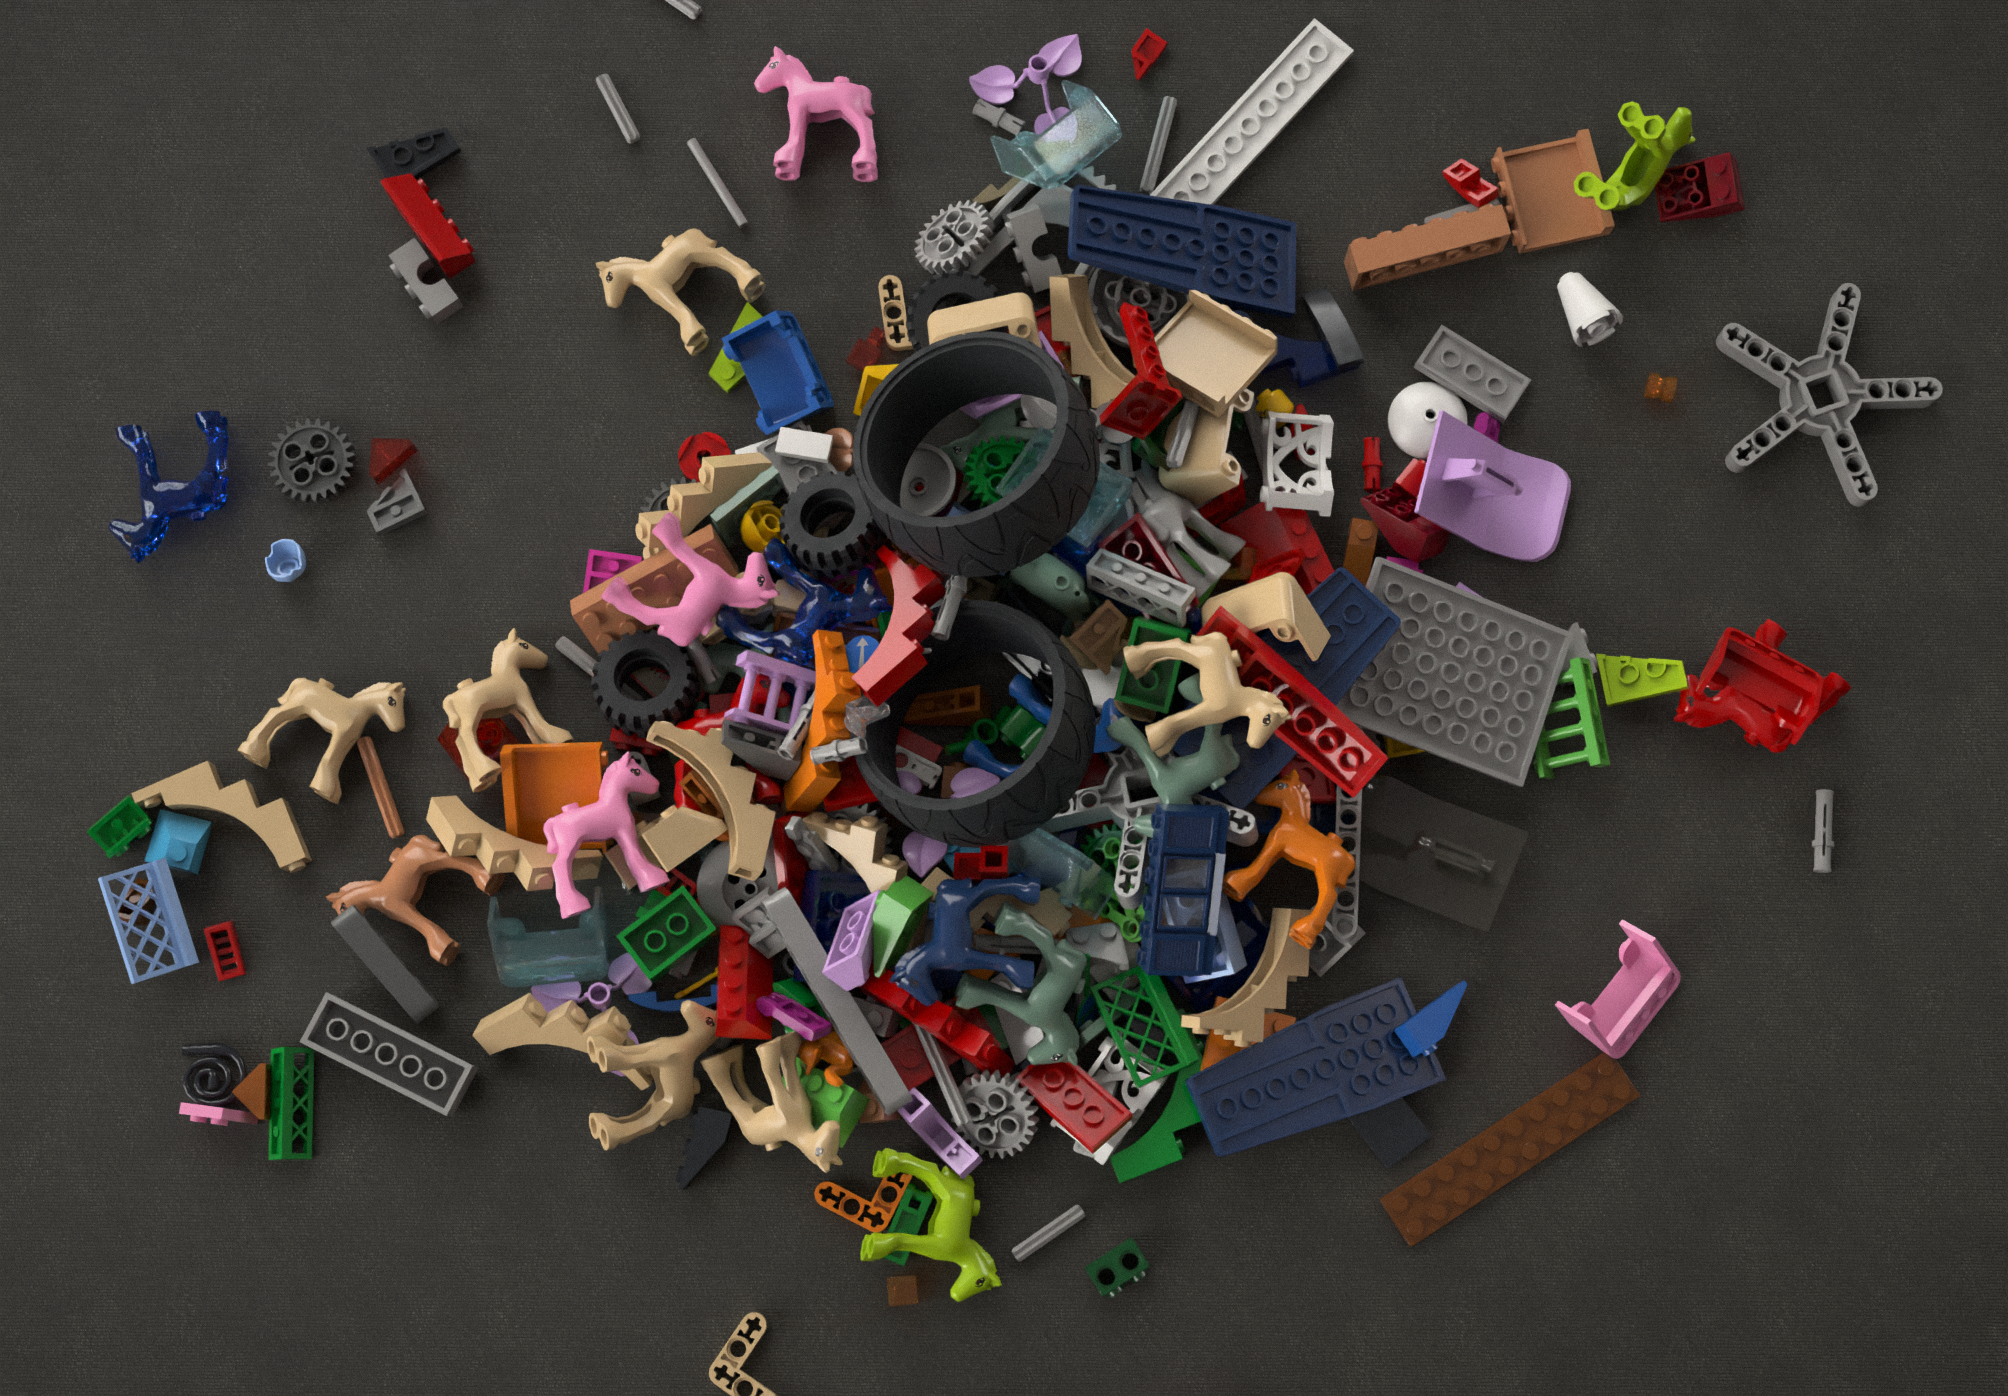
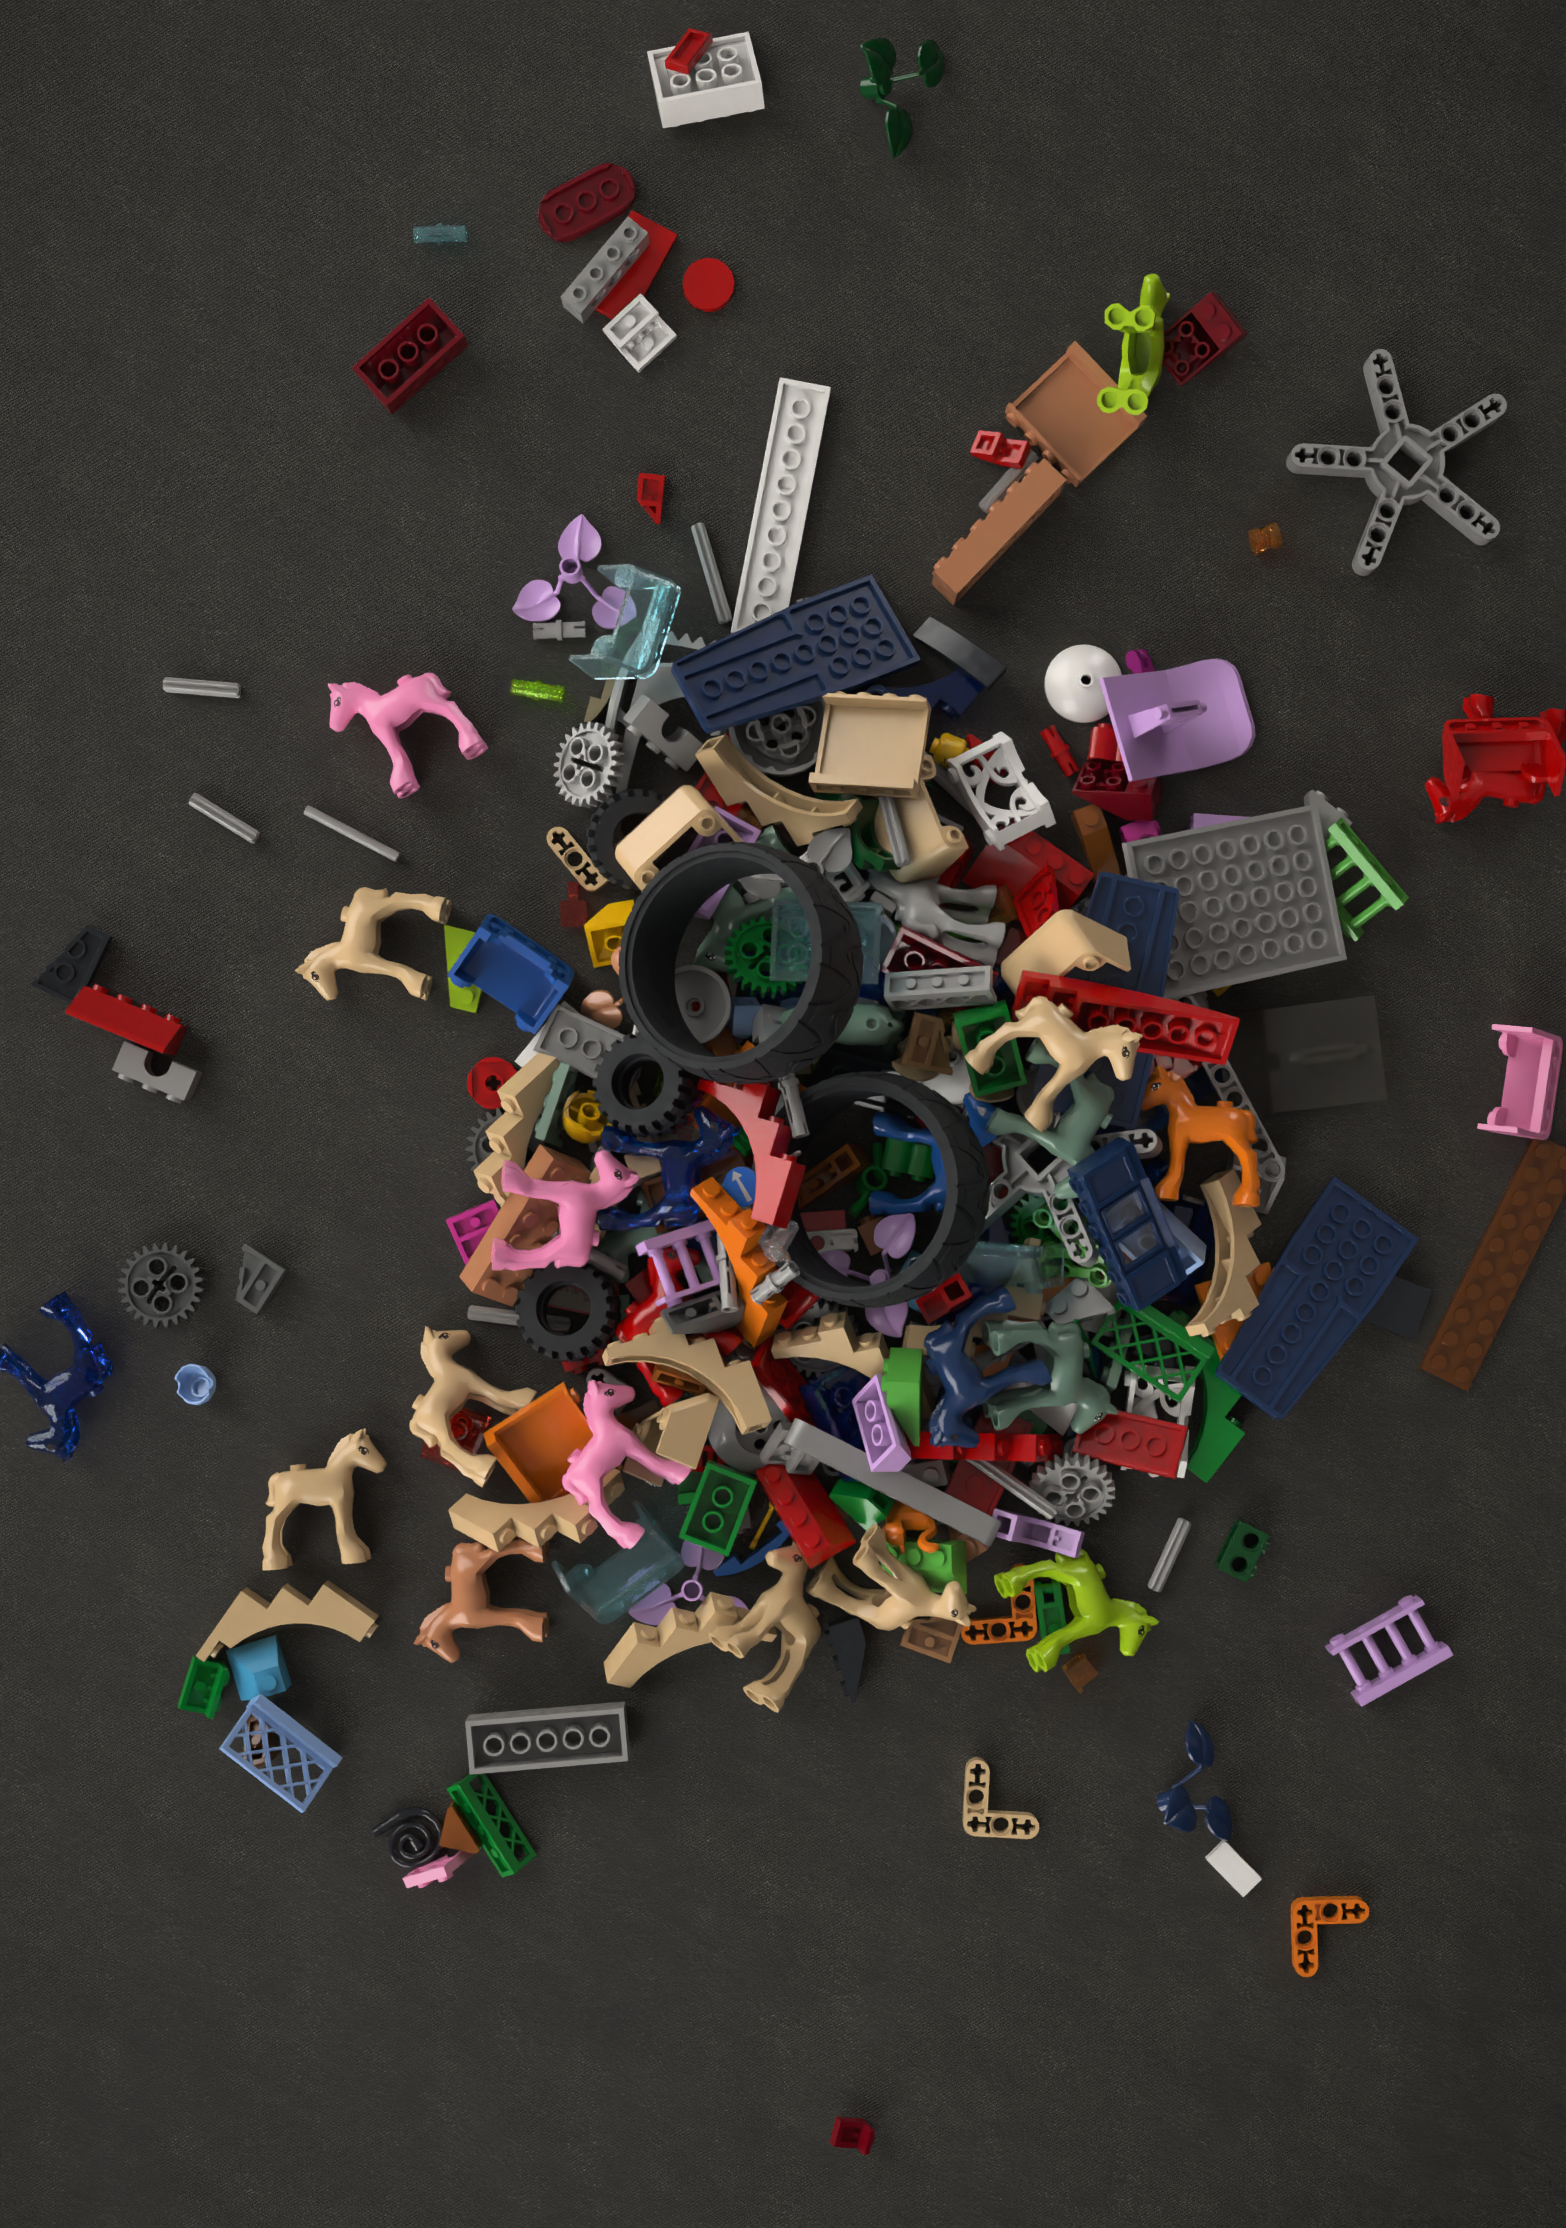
camera: 30 degrees left, 10 degrees up
(215, 953) = (362, 1725): red slope -> none
(380, 787) = (397, 1522): nougat axle -> none
(385, 964) = (497, 1668): dark grey beam -> none
(388, 456) = (223, 1243): clear red slope -> none
(789, 1176) = (933, 1637): none -> medium nougat wing
(794, 1016) = (866, 1515): magenta hinge -> none
(804, 445) = (573, 1024): white tile -> none
(811, 846) = (793, 1366): light grey hinge -> none
(949, 155) = (537, 690): none -> clear neon green pin
(1148, 394) = (851, 817): red bracket -> none
(1430, 1023) = (1382, 1201): blue slope -> none
(1472, 373) = (1098, 620): light grey tile -> none
(1587, 310) = (1163, 505): white cone -> none
(1636, 678) = (1389, 806): lime wing -> none

